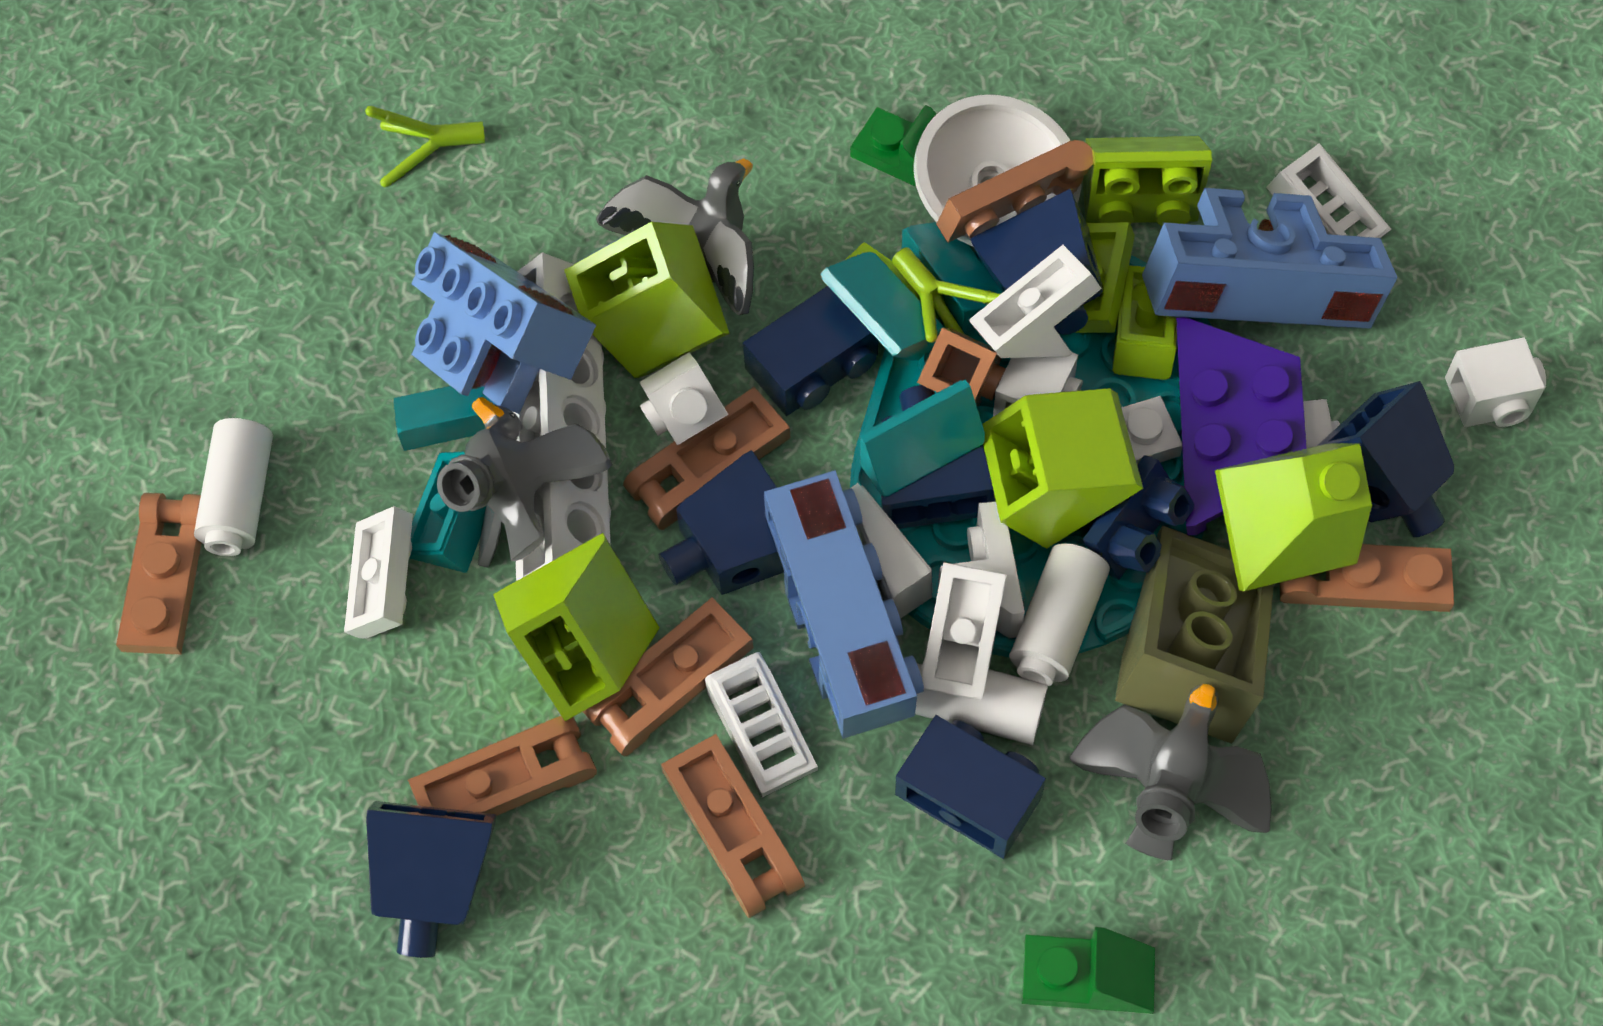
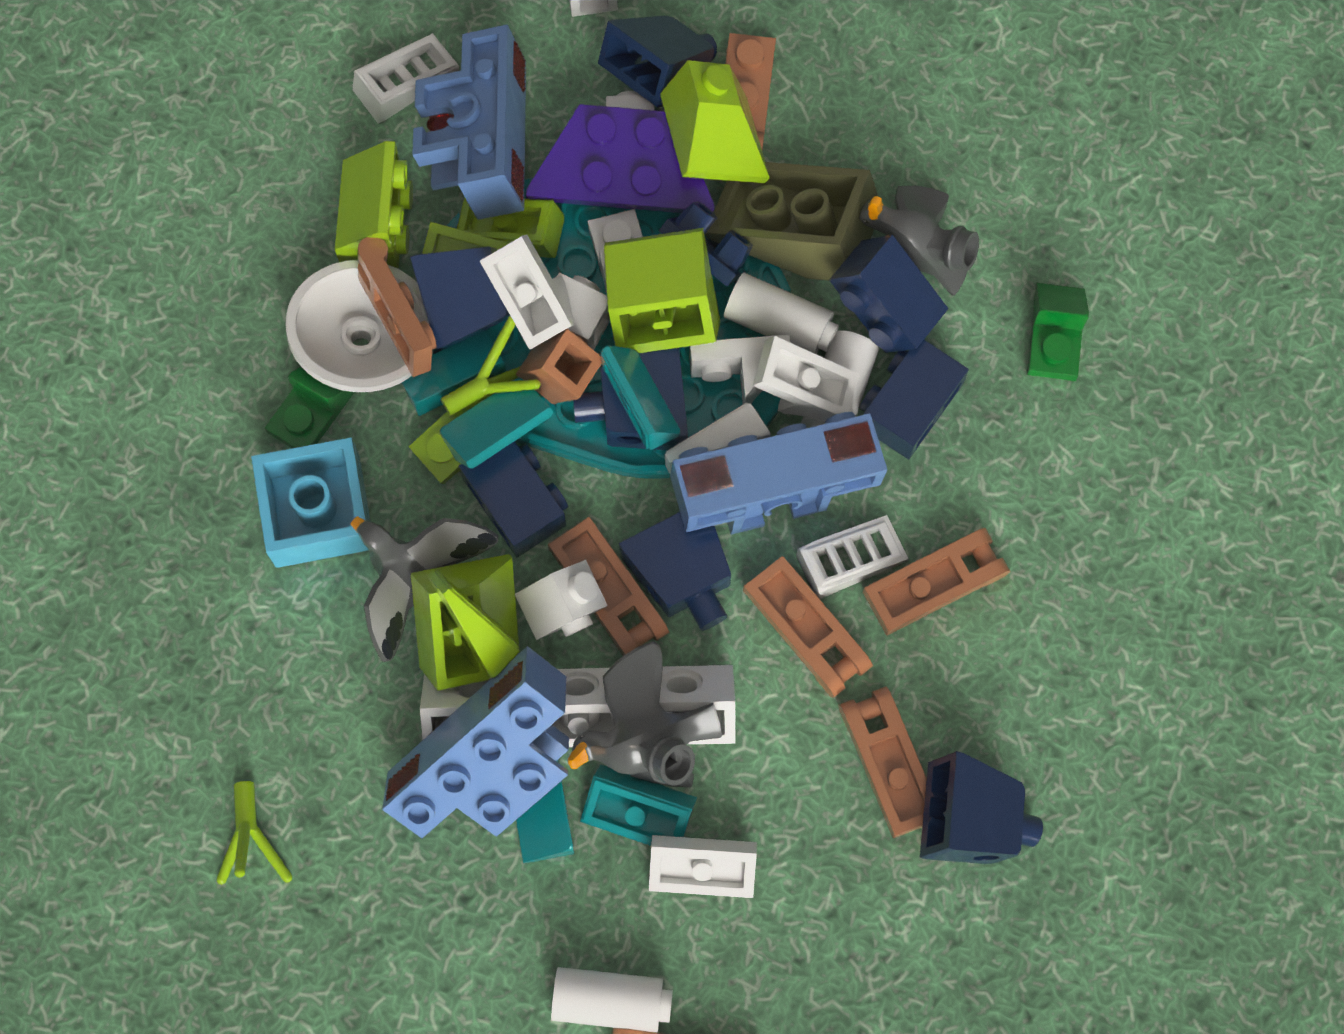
camera: 90 degrees left, 10 degrees up
(578, 625) = (779, 686): lime slope -> none
(622, 268) = (484, 636): none -> lime slope
(794, 148) = (310, 500): none -> medium azure brick
(1092, 729) = (888, 294): none -> dark blue brick

